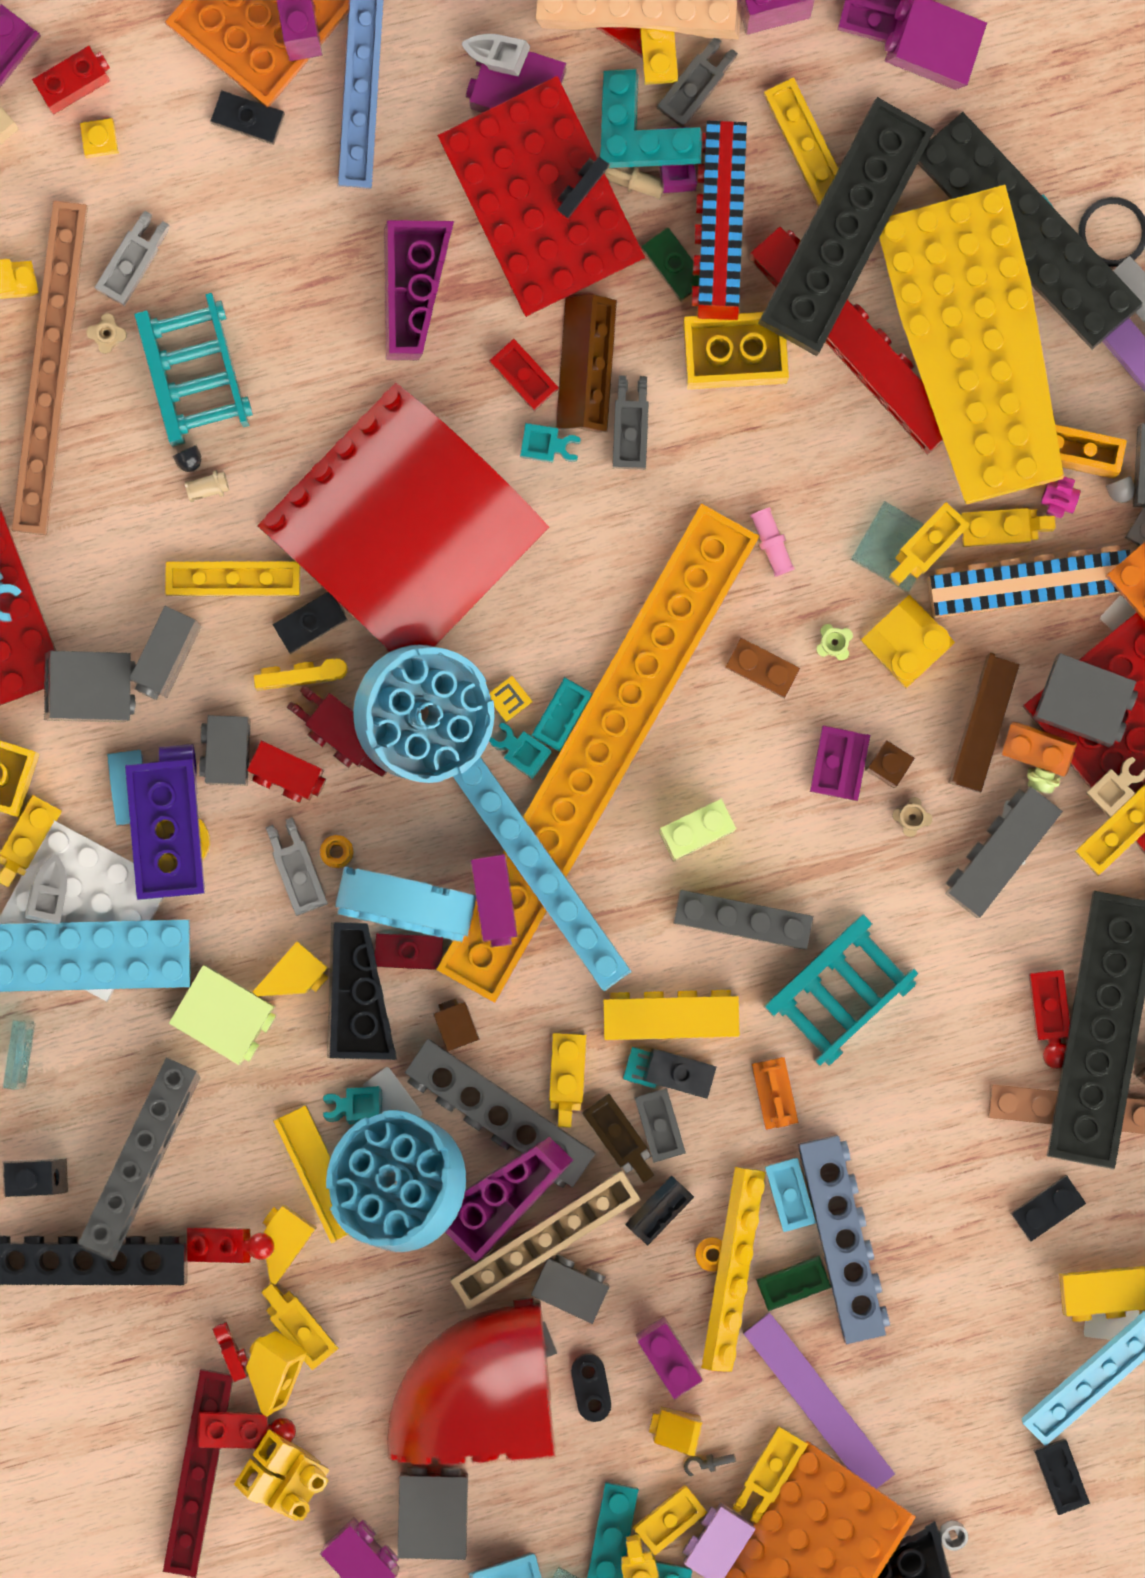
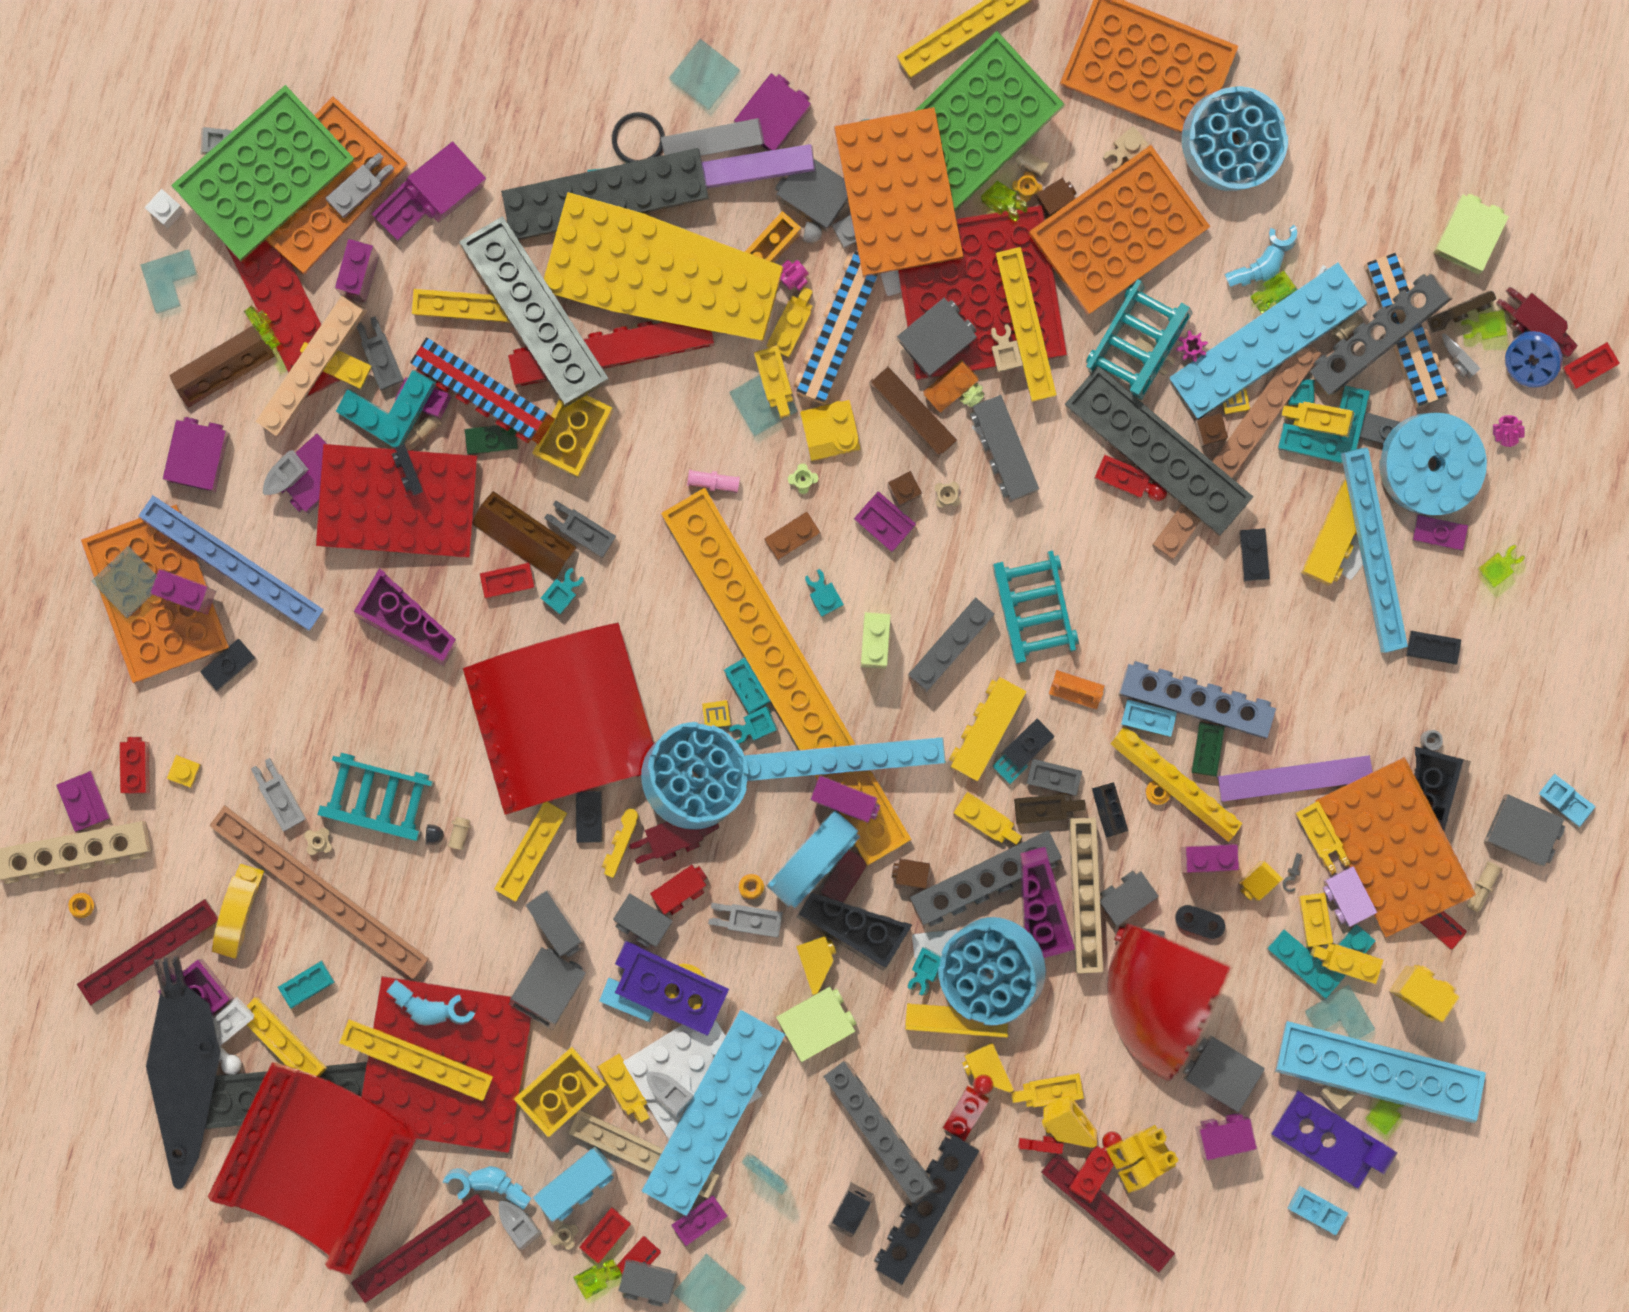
camera: 60 degrees left, 0 degrees up
(714, 745) = (825, 597): none -> teal plate

